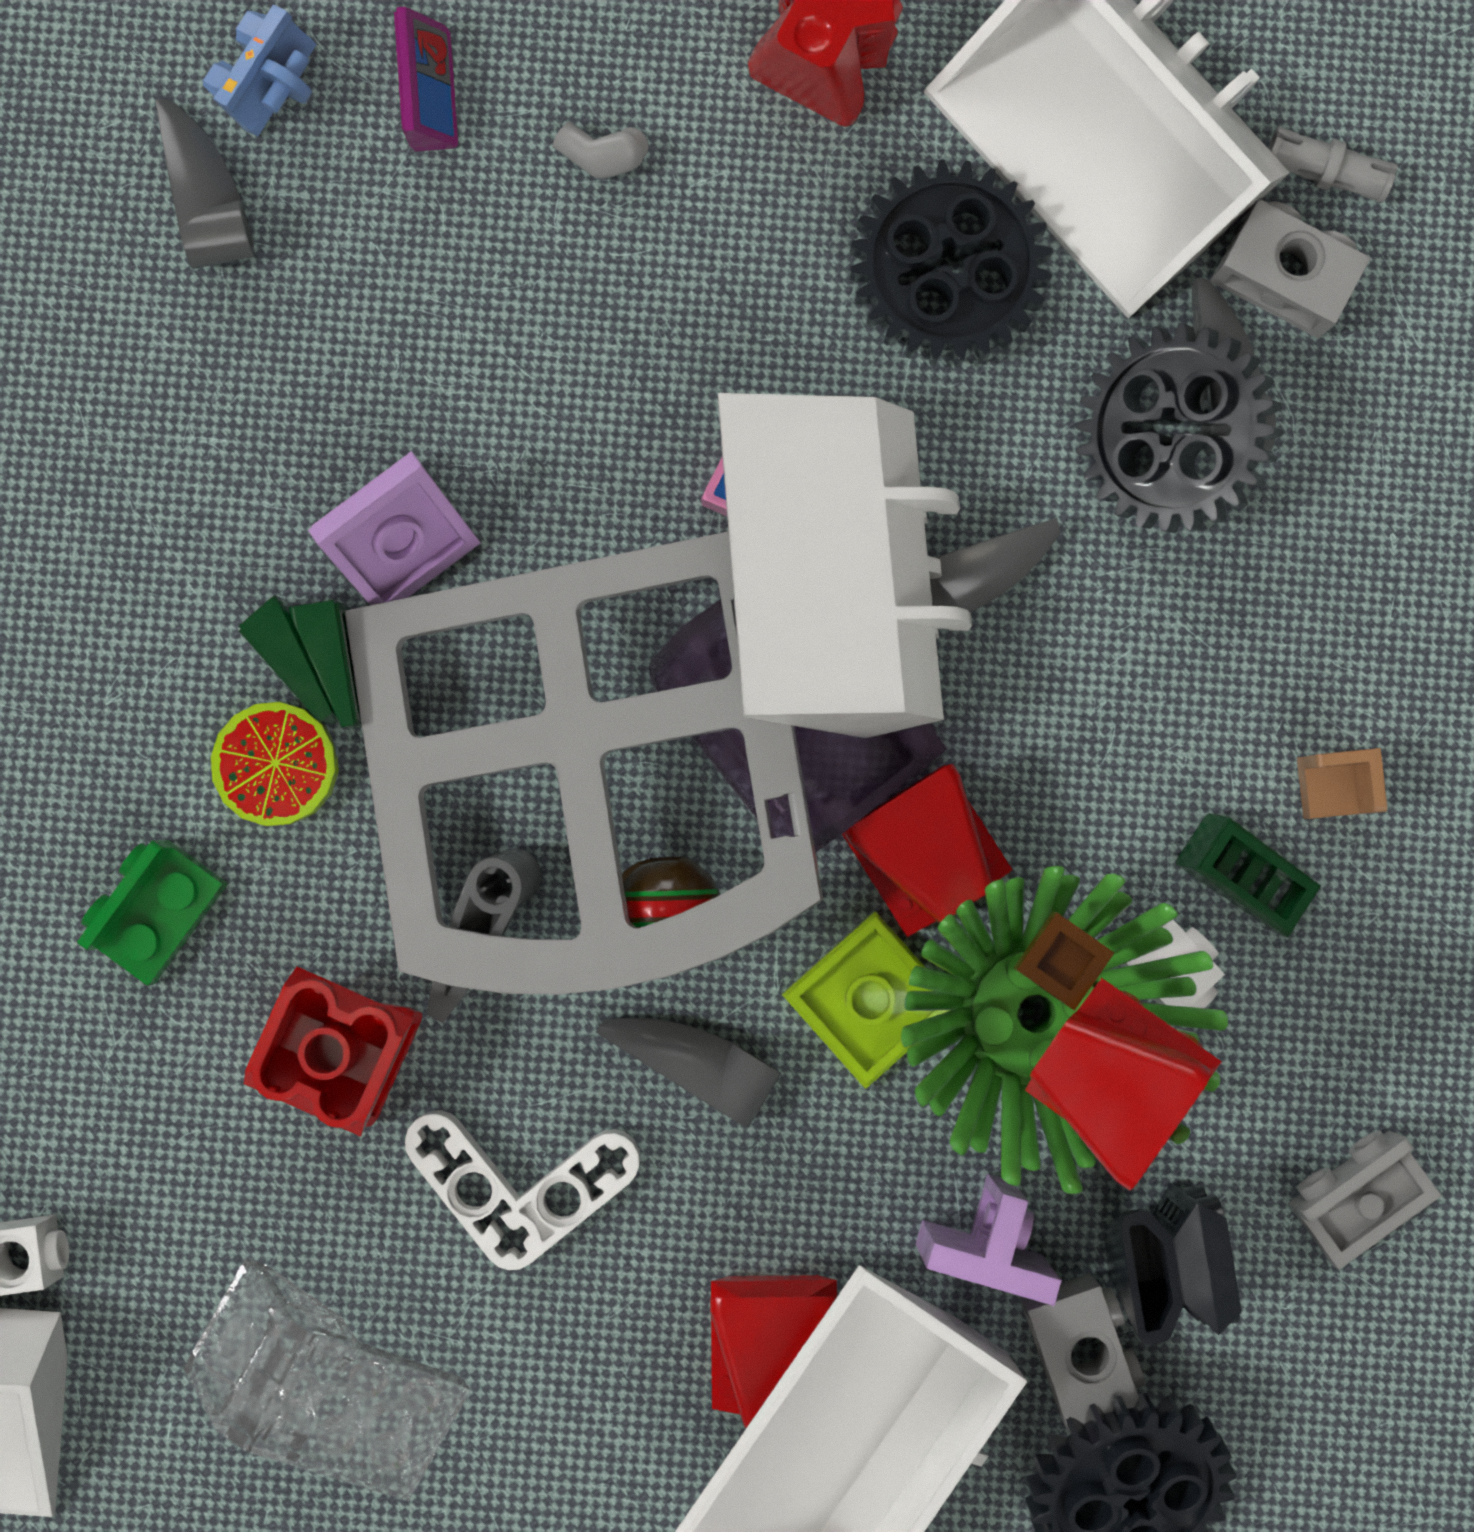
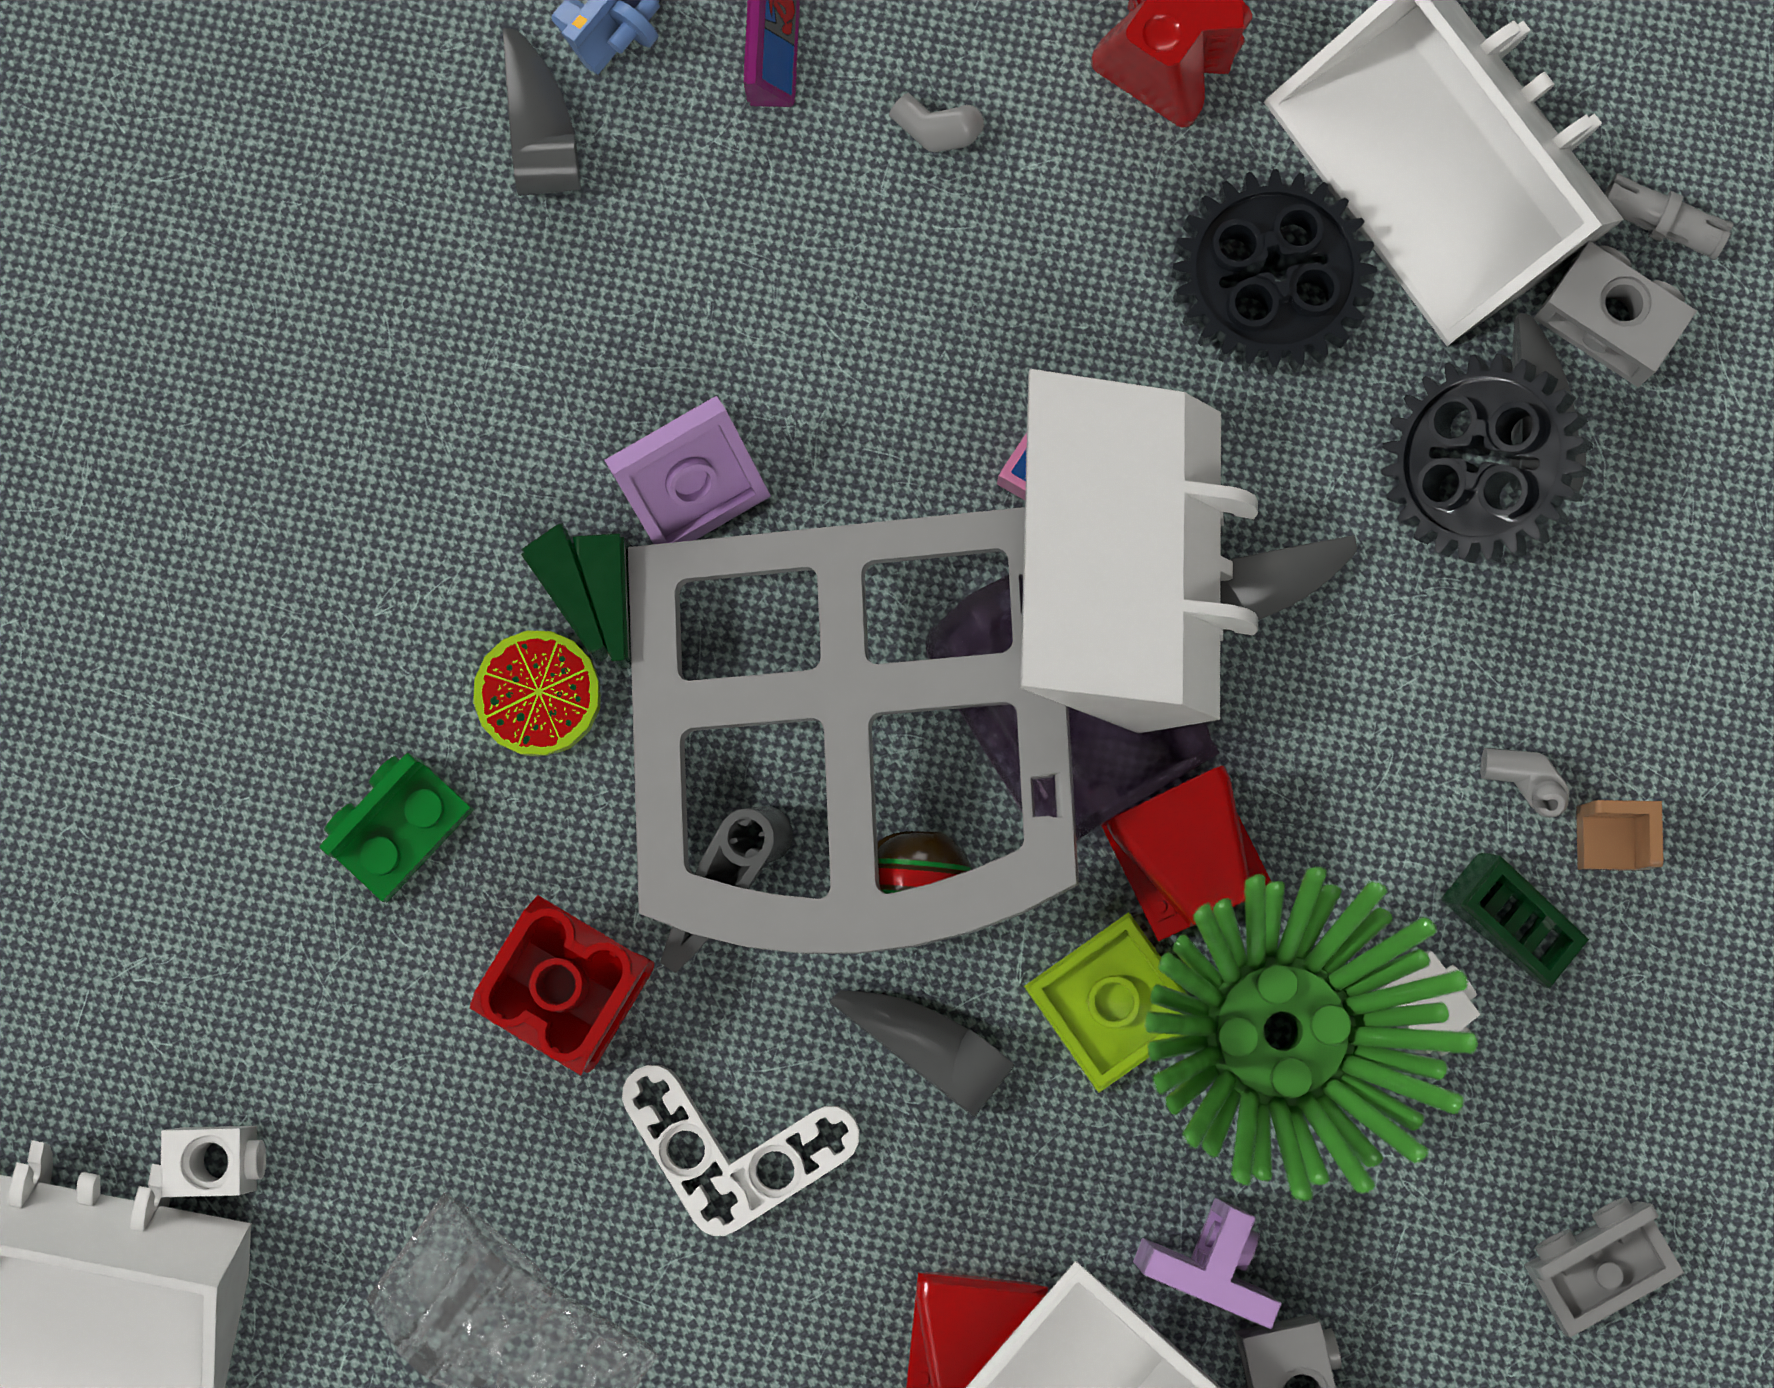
camera: 15 degrees right, 5 degrees down
(1063, 960) = (1317, 964): reddish brown plate -> none
(1121, 1079) = (1362, 1086): red piece -> none
(1174, 1263) = (1398, 1306): black piece -> none
(1252, 734) = (1531, 774): none -> light grey arm

